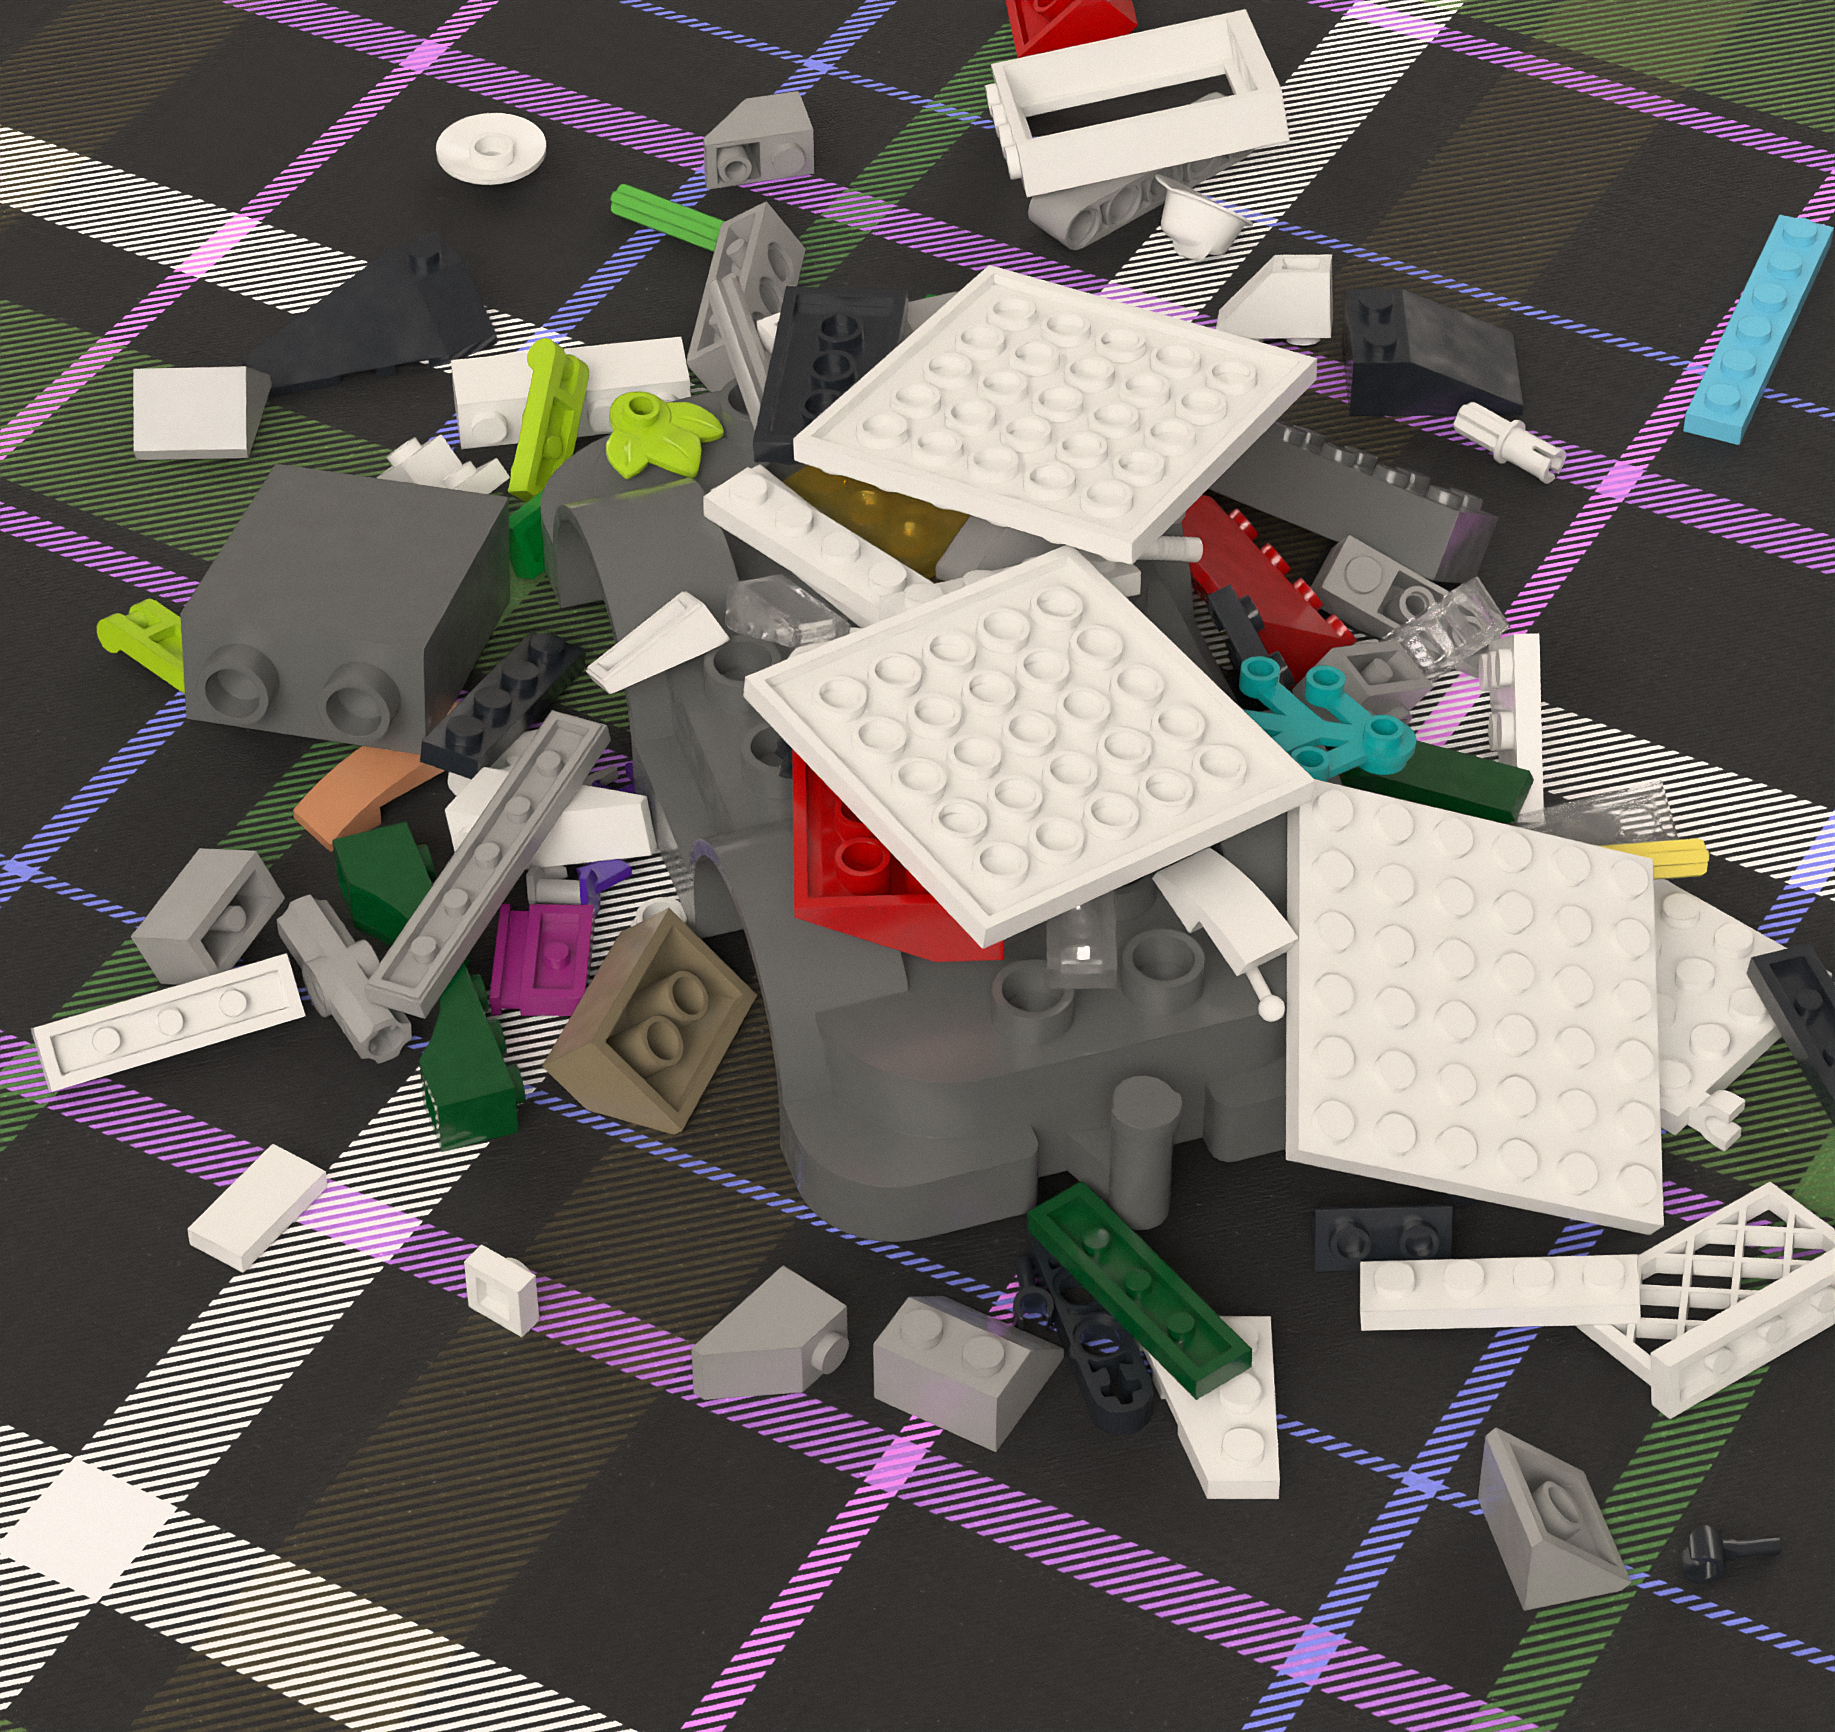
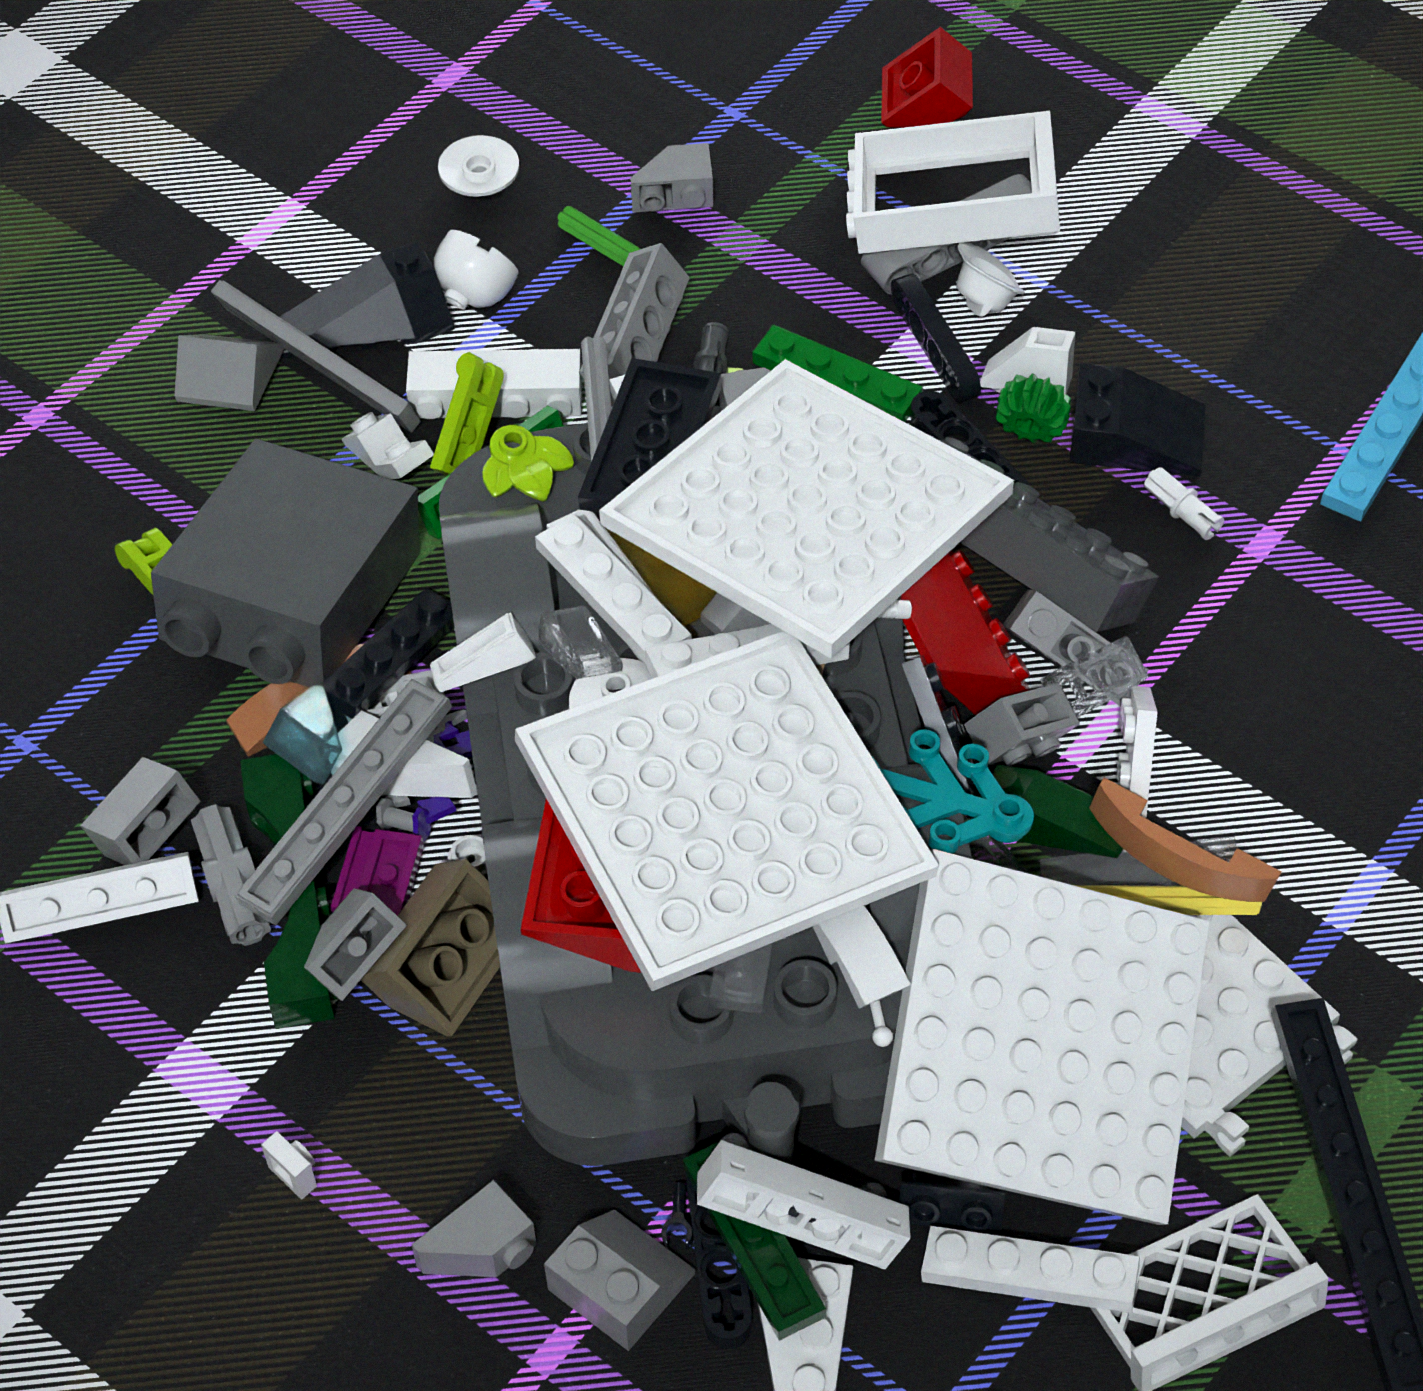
camera: 10 degrees right, 10 degrees up
(257, 1208) = (131, 1063): white tile -> none
(320, 378) = (316, 355): none -> light grey tile
(421, 796) = (306, 735): none -> clear light blue slope
(514, 265) = (472, 273): none -> white cylinder
(537, 1017) = (352, 941): none -> light grey slope
(1133, 273) = (935, 338): none -> black beam
(1198, 1237) = (803, 1203): none -> white piece
(1304, 334) = (1033, 408): none -> green gear
(1592, 803) = (1176, 858): none -> nougat slope

